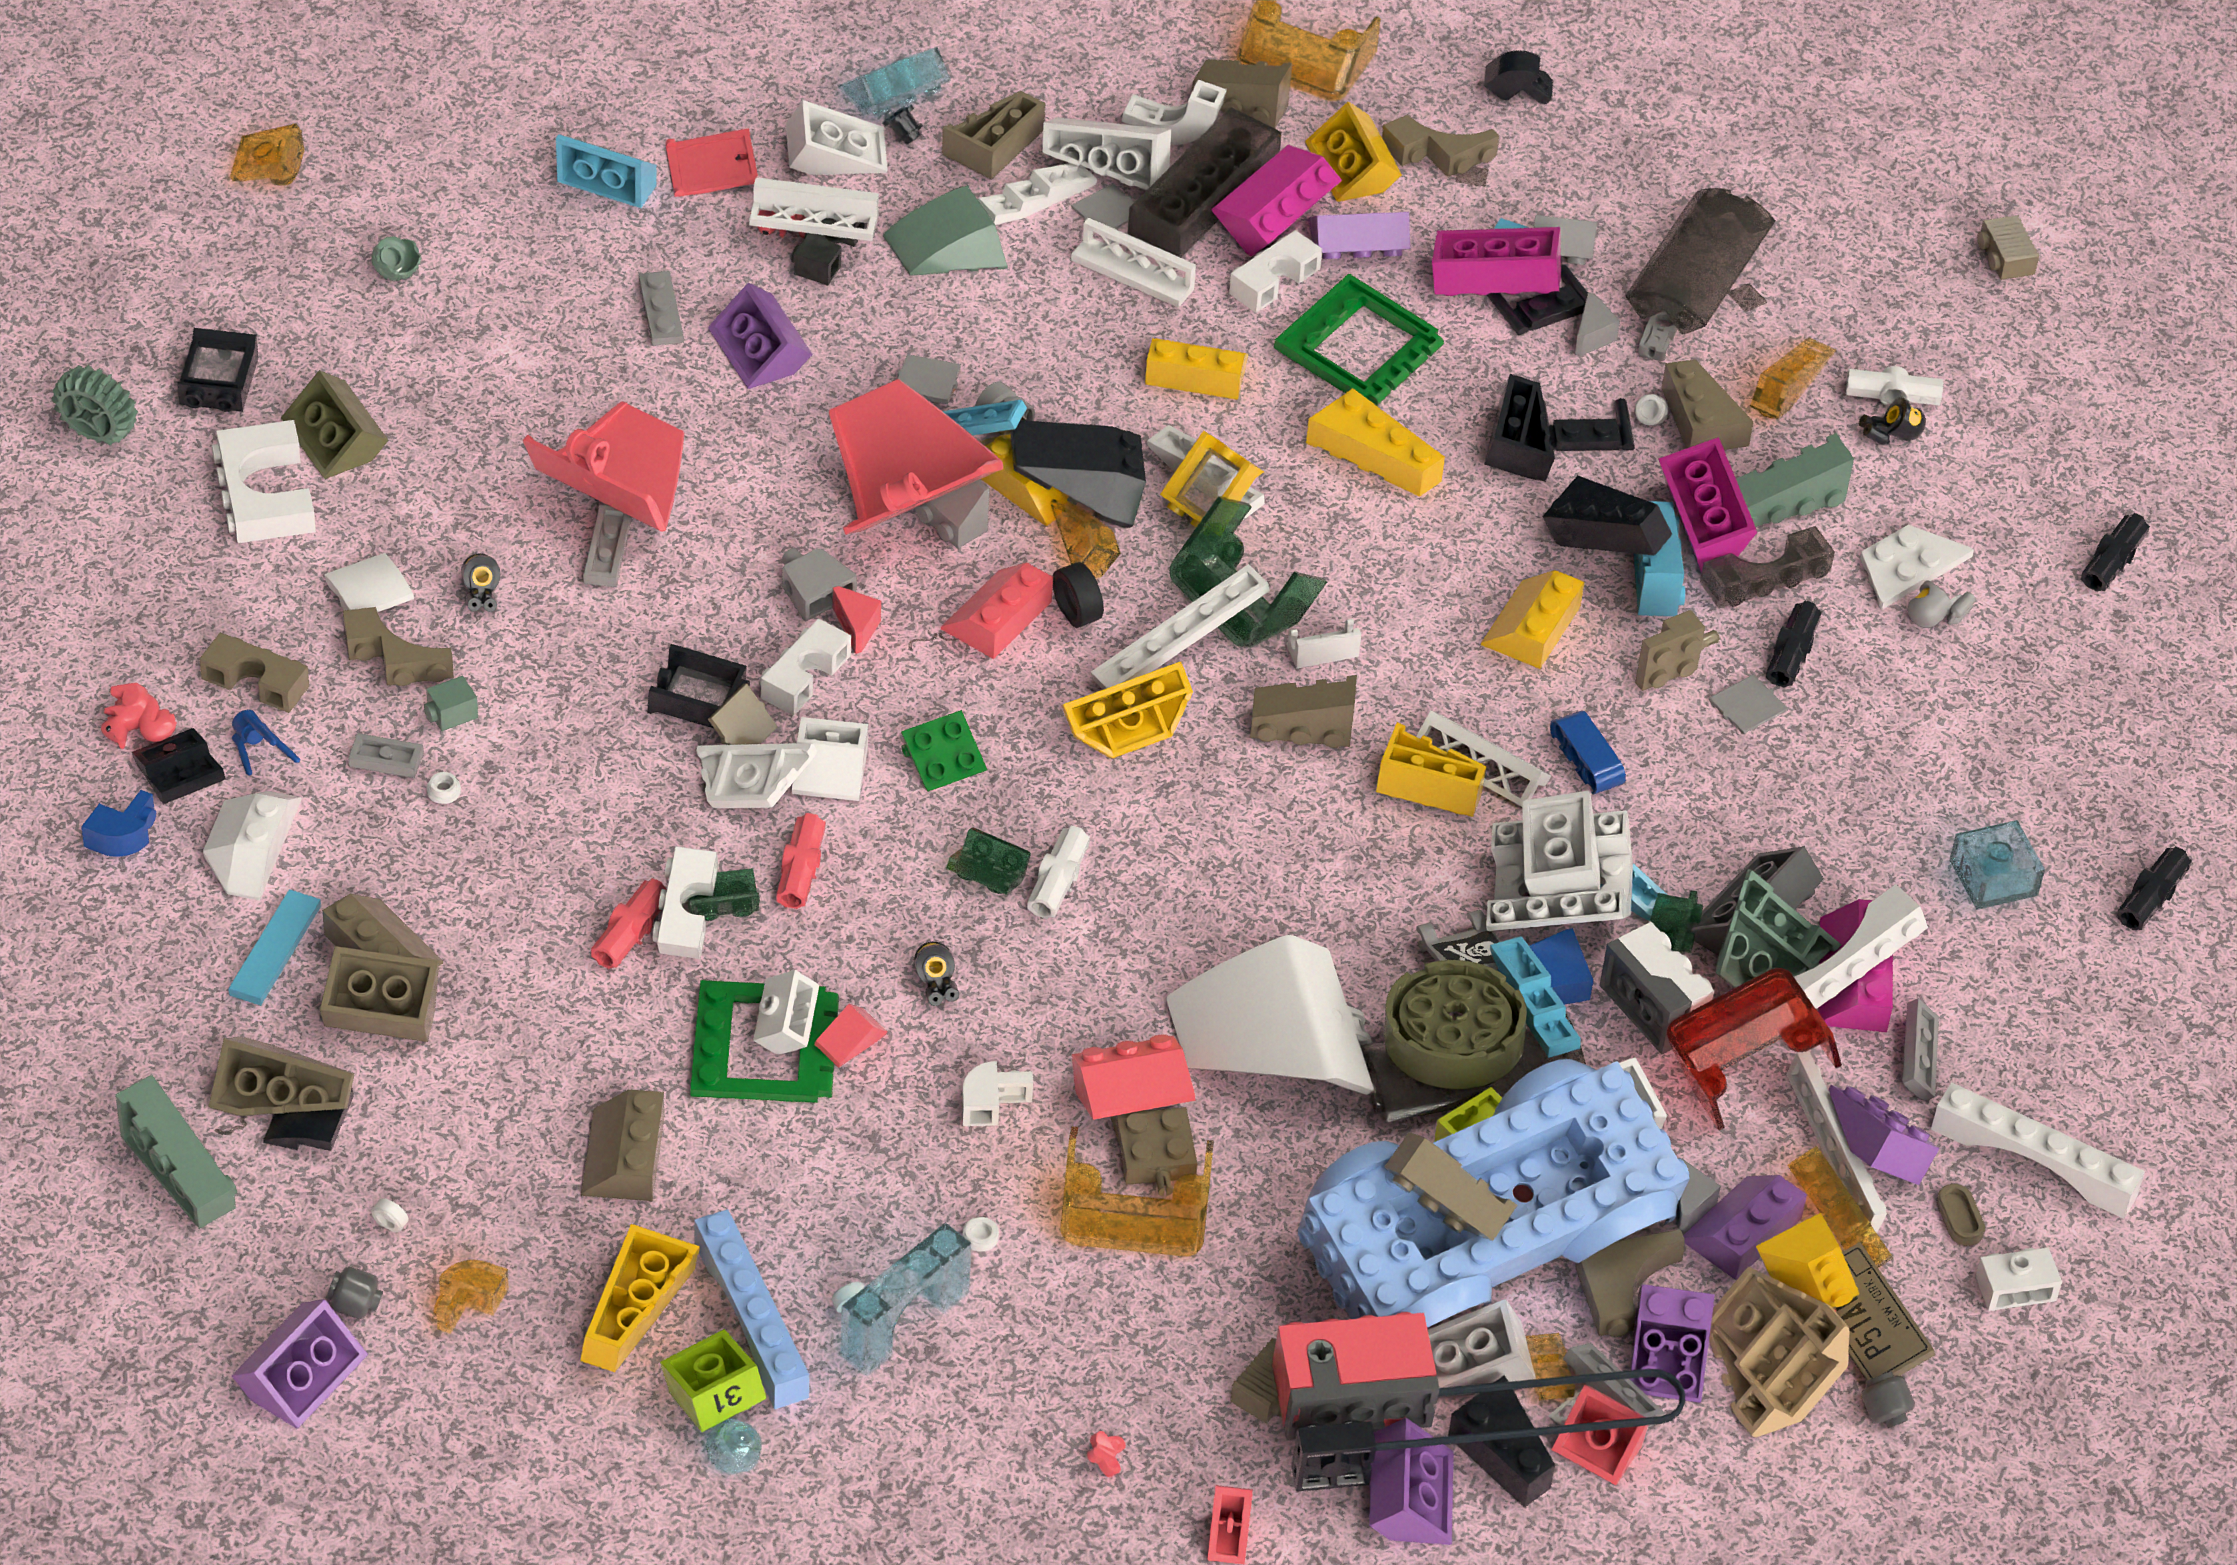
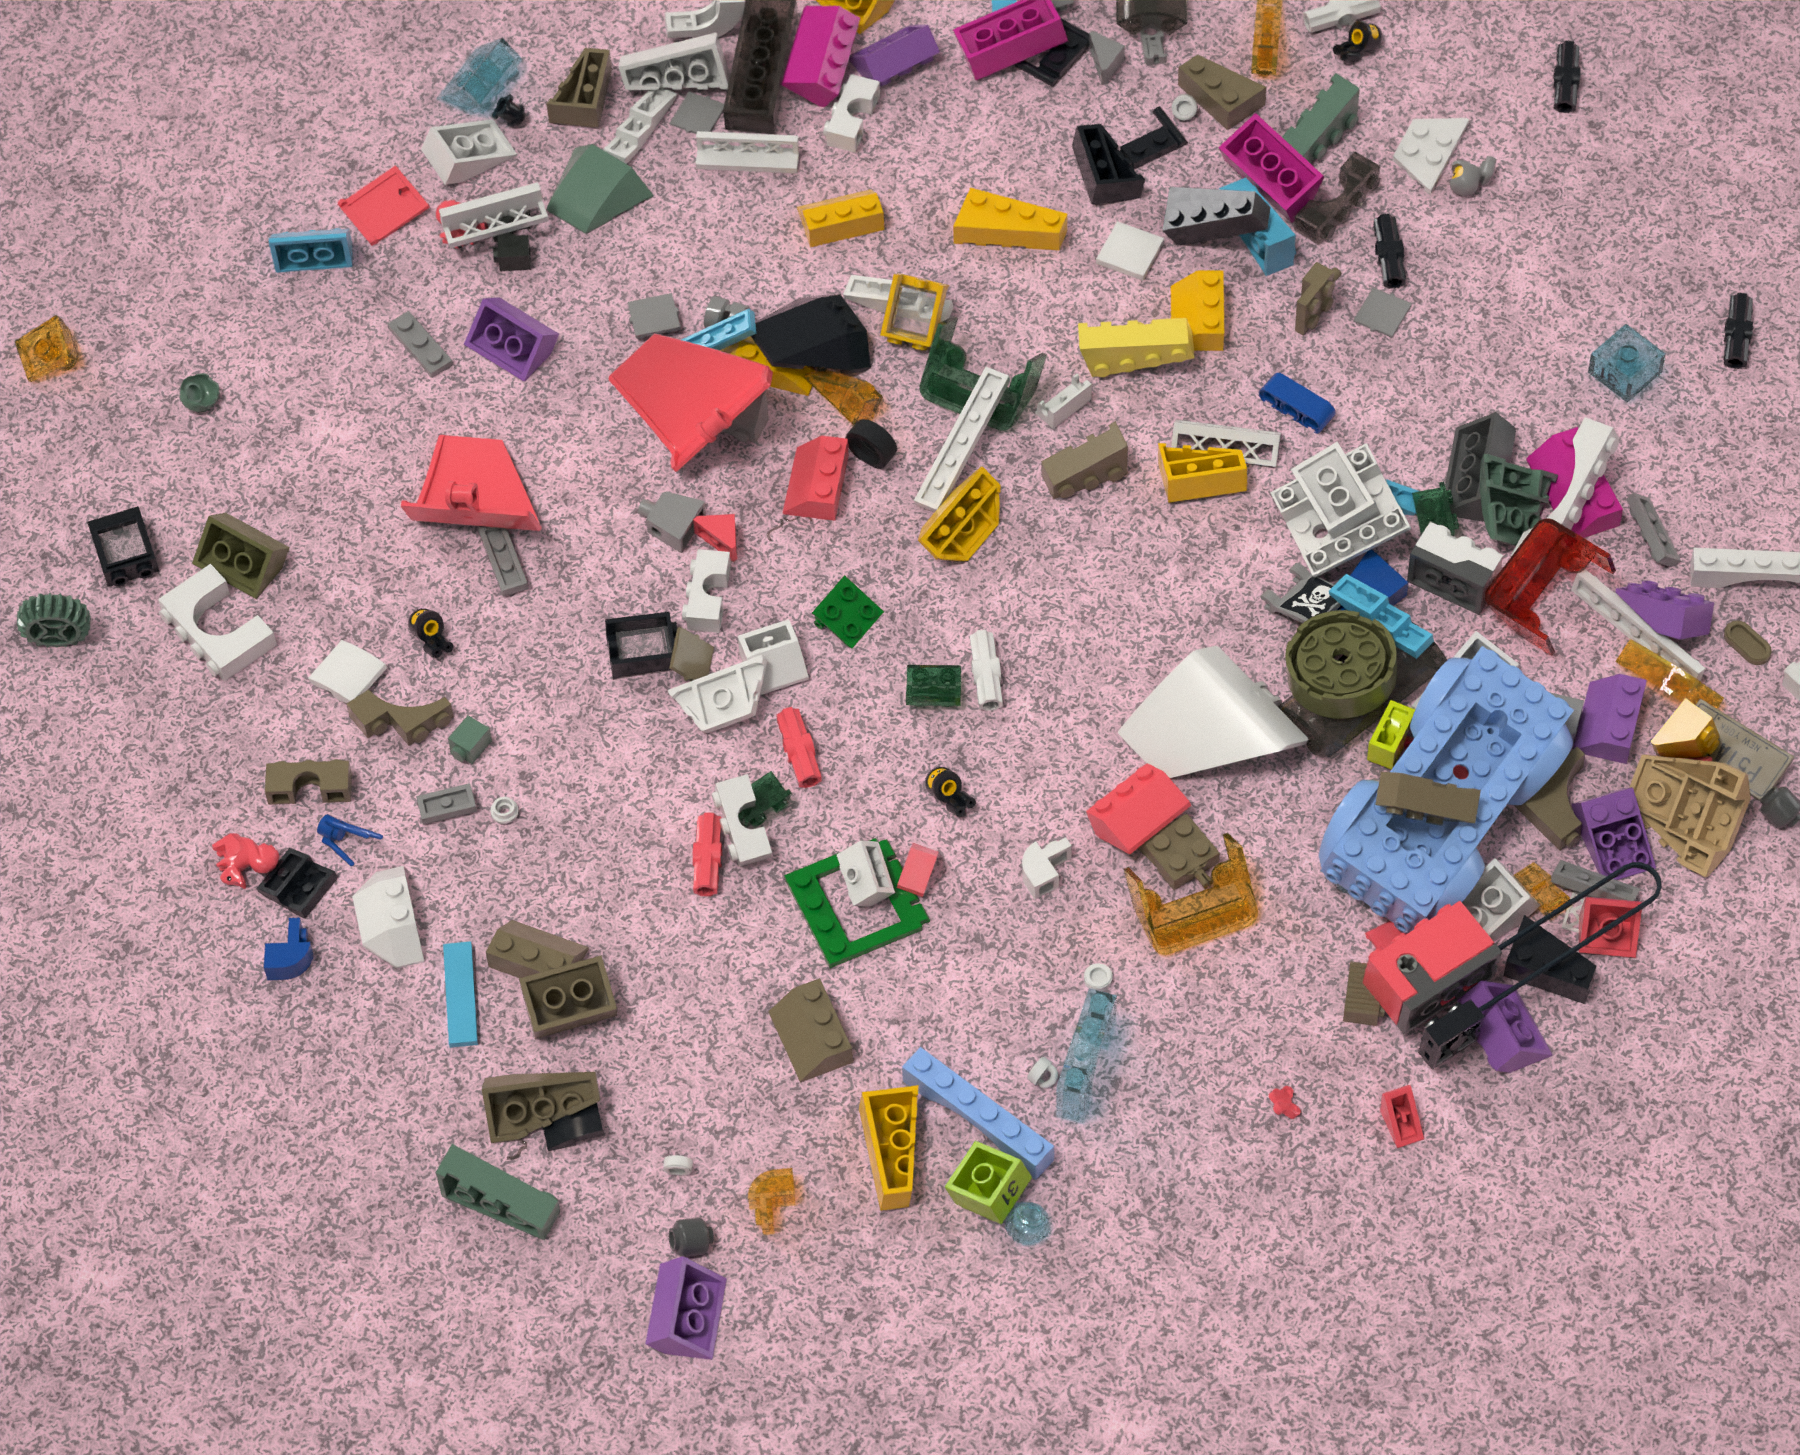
camera: 20 degrees left, 10 degrees up
(1331, 312) = (910, 134): green hinge -> none
(1433, 614) = (1134, 345): none -> light yellow wedge
(1498, 527) = (1130, 250): none -> white tile

